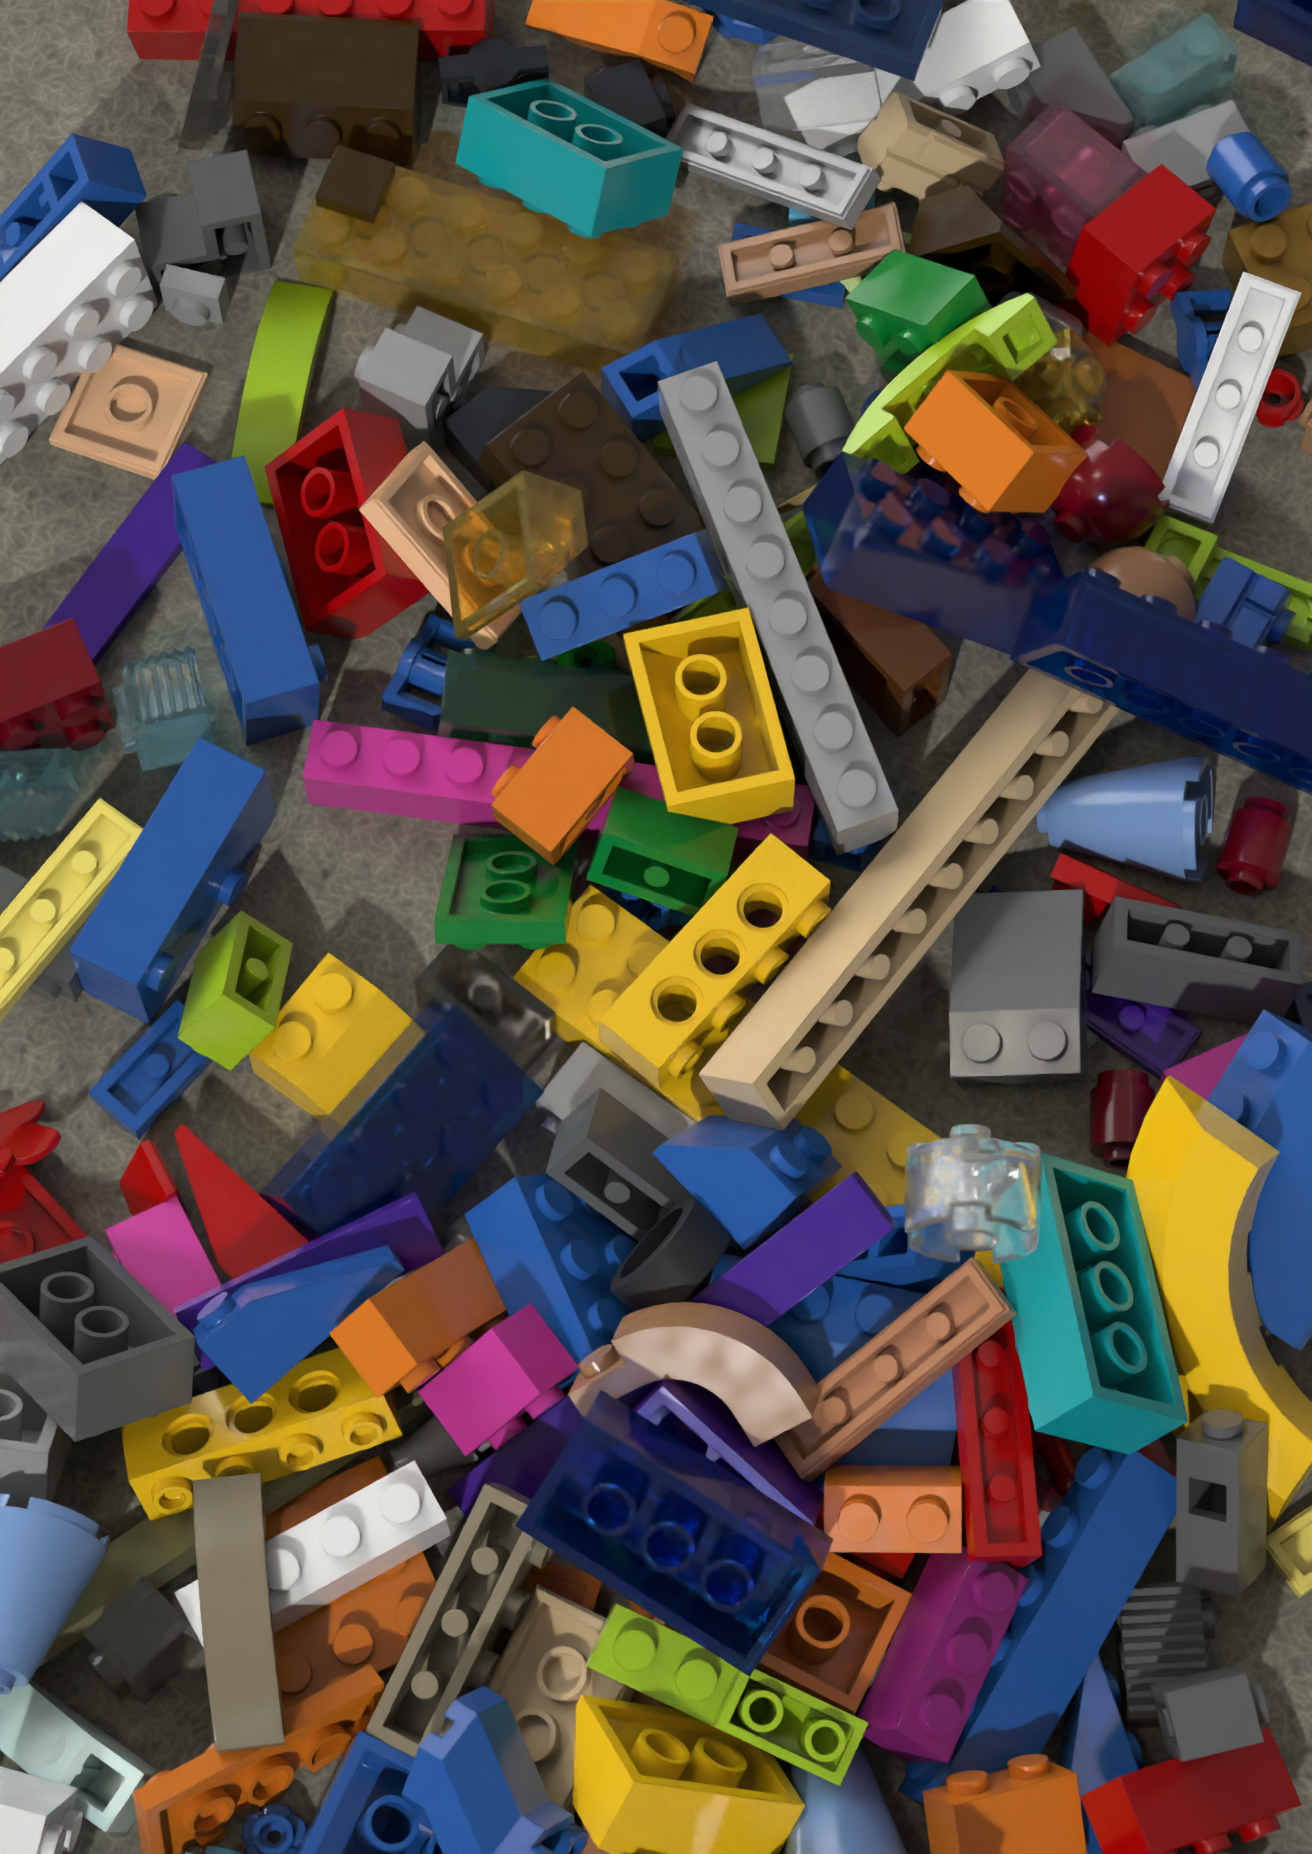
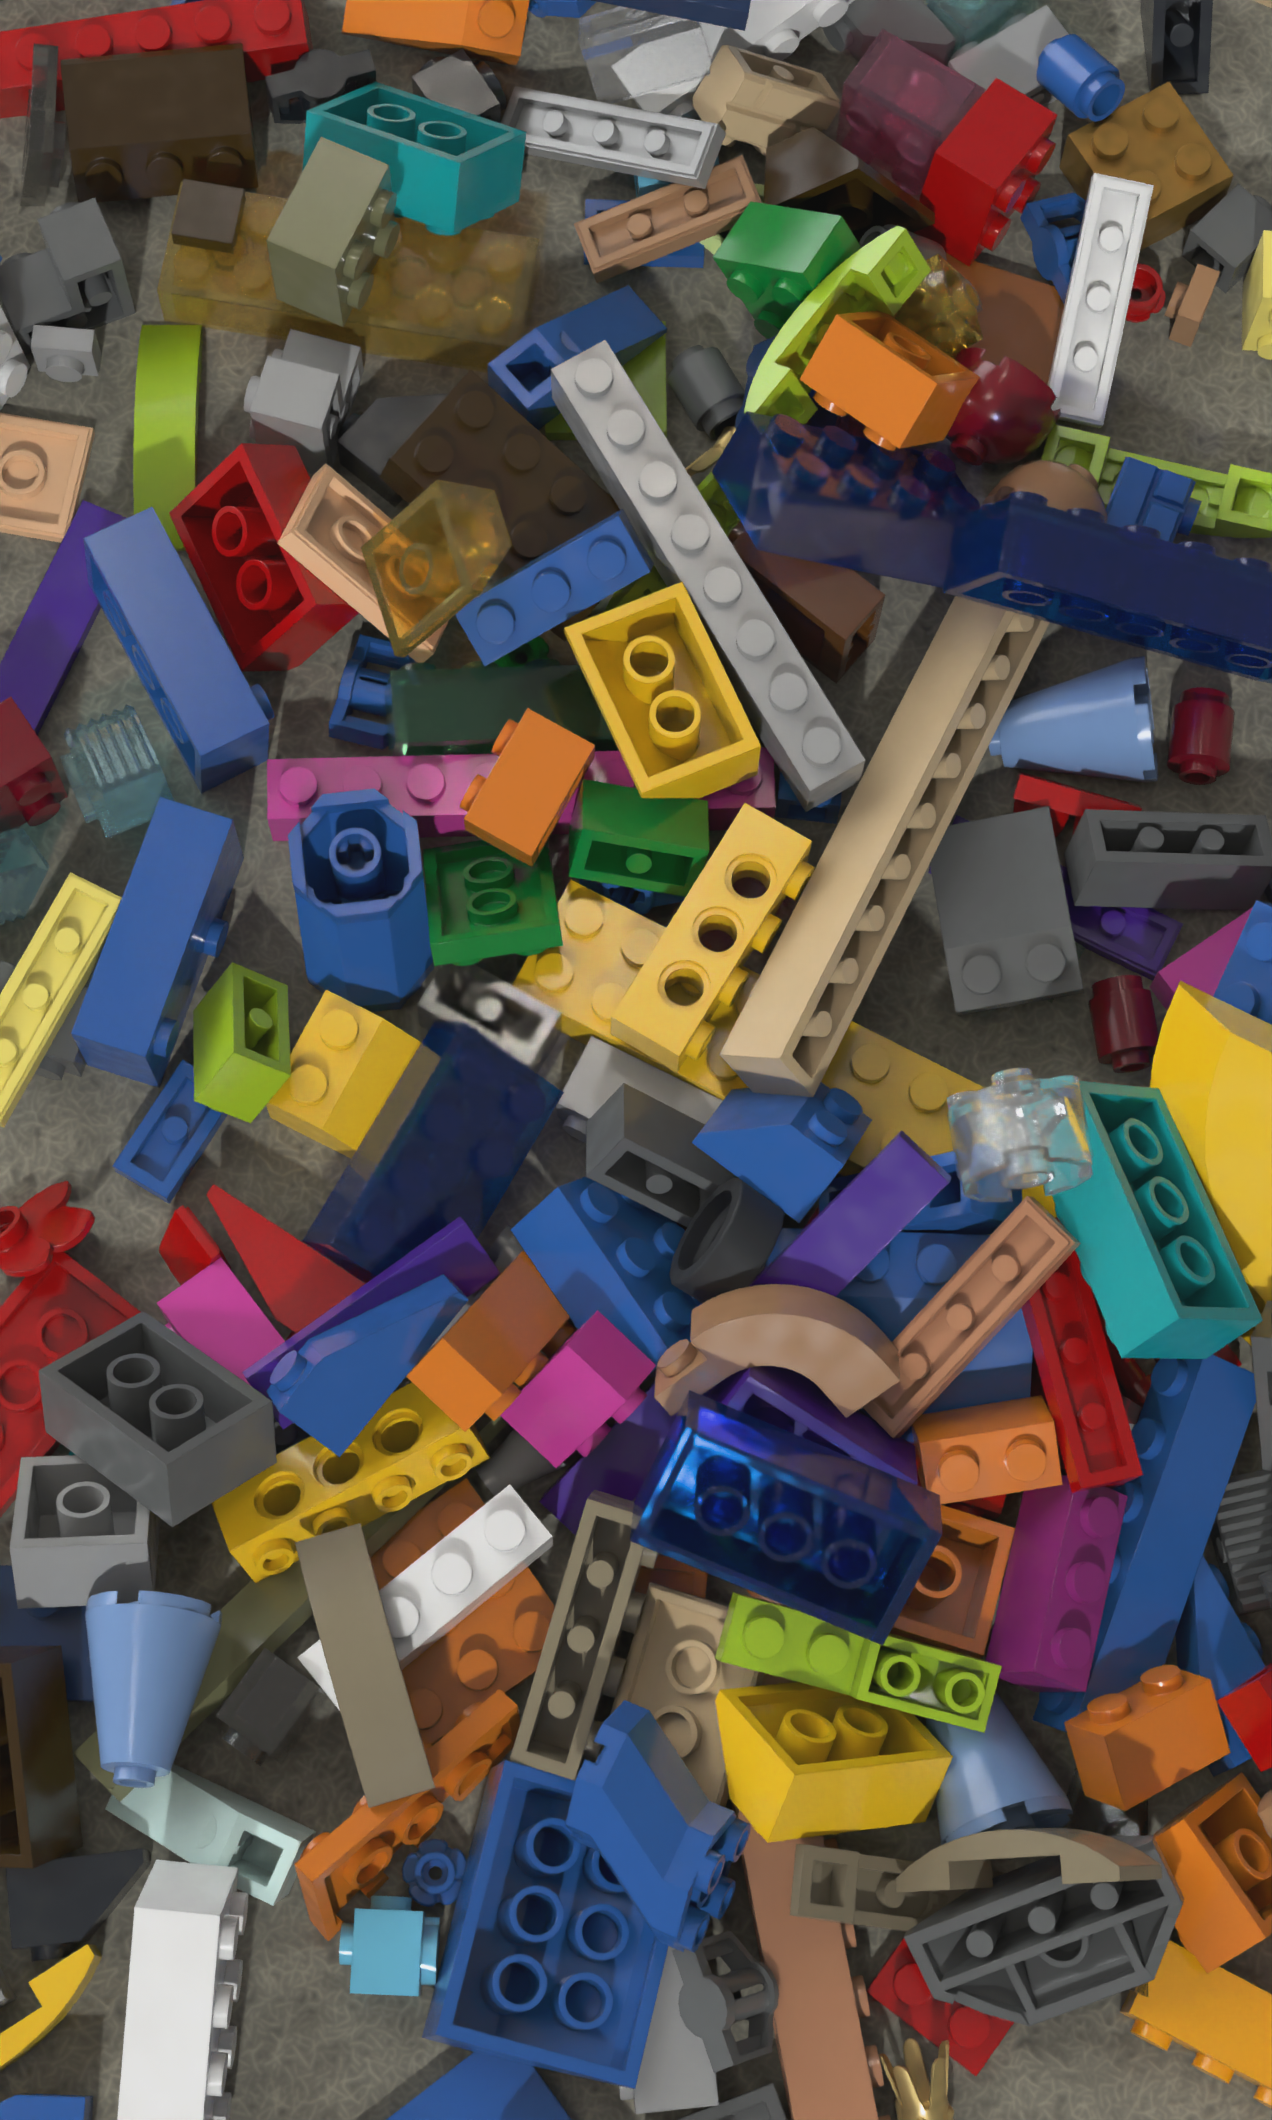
camera: 15 degrees left, 5 degrees up
(379, 870) = (361, 899): none -> blue brick
(471, 218) = (333, 232): none -> olive brick

